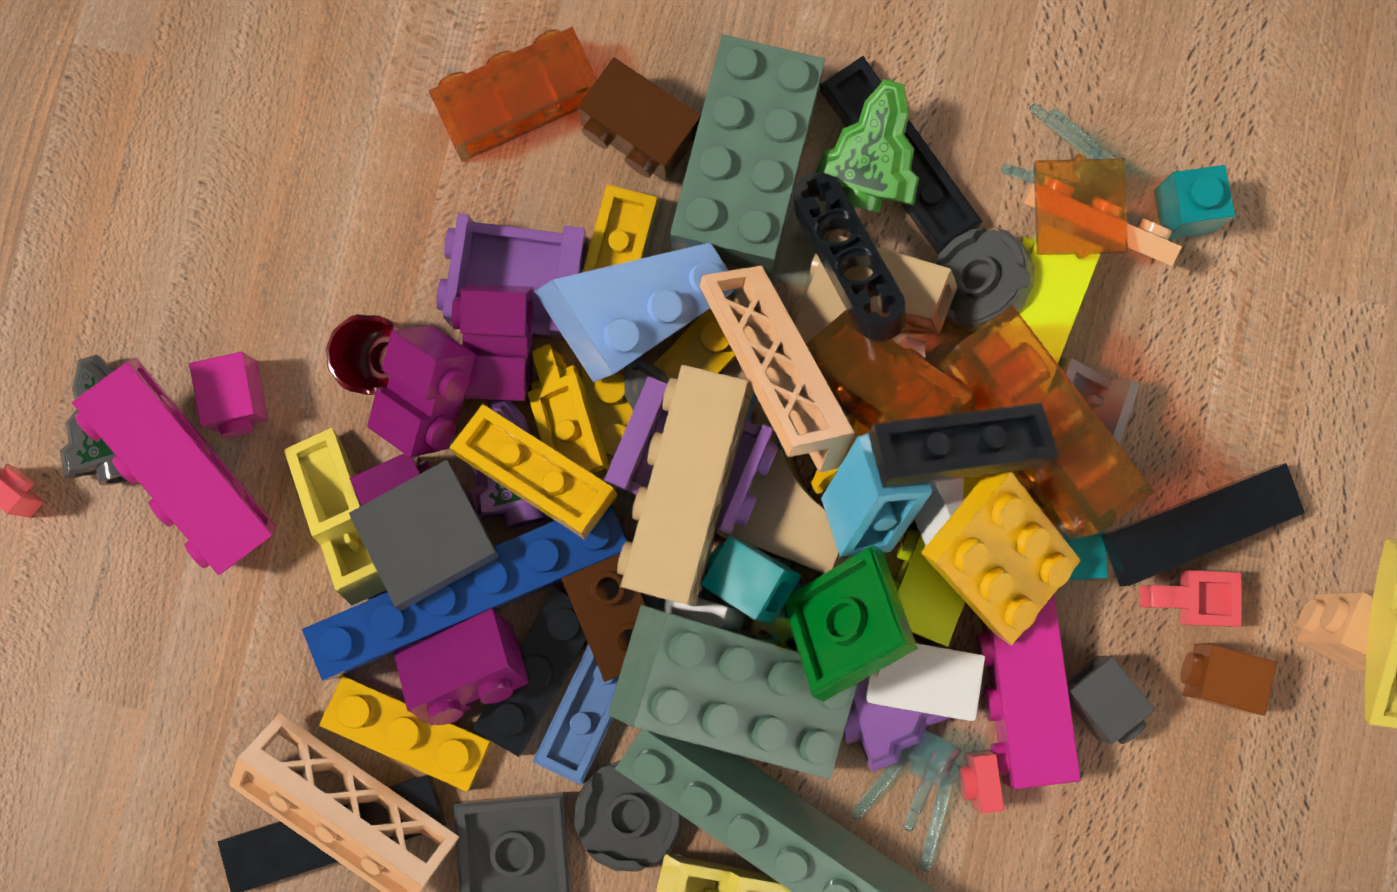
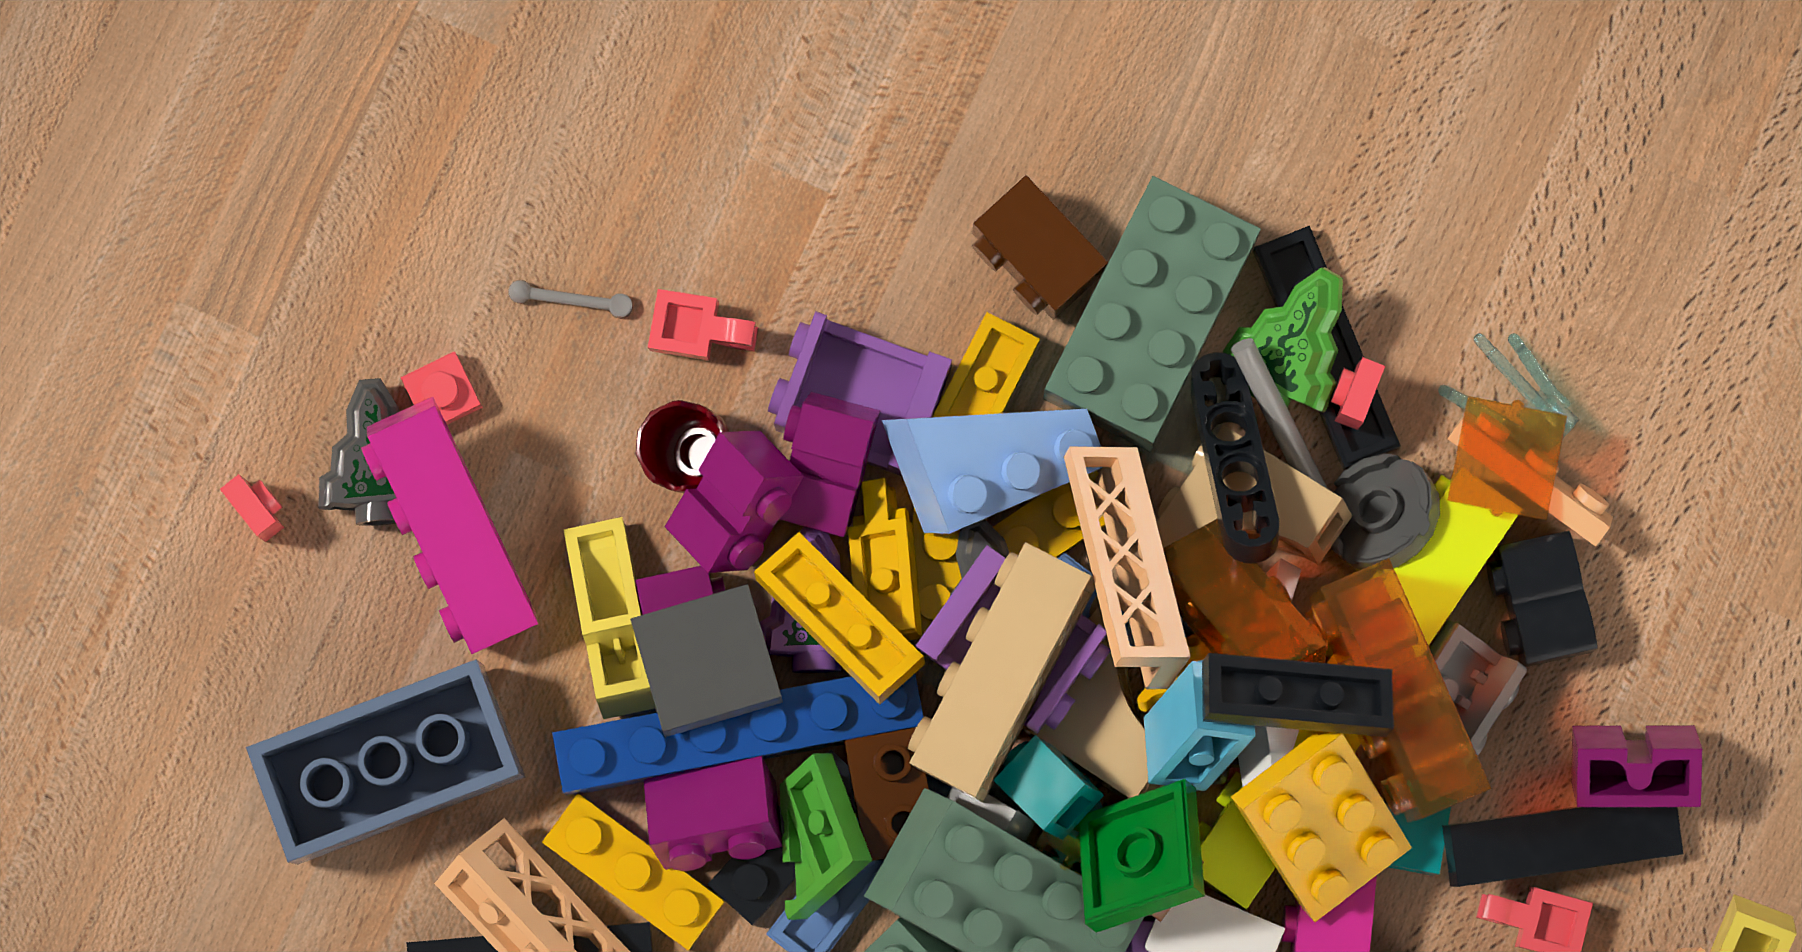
camera: 15 degrees right, 0 degrees up
(158, 352) = (448, 385): none -> coral plate
(160, 688) = (385, 762): none -> sand blue brick
(229, 394) = (518, 456): dark pink brick -> none
(294, 250) = (619, 305): none -> light grey hinge
(356, 250) = (690, 324): none -> coral plate
(514, 92) = (906, 183): clear orange brick -> none
(558, 666) = (819, 834): none -> bright green wing
(867, 204) = (1275, 409): none -> light grey bar
(938, 180) = (1356, 391): none -> coral plate
(1135, 322) = (1543, 599): none -> black brick
(1194, 201) = (1642, 478): teal brick -> none
(1272, 445) = (1636, 773): none -> magenta brick

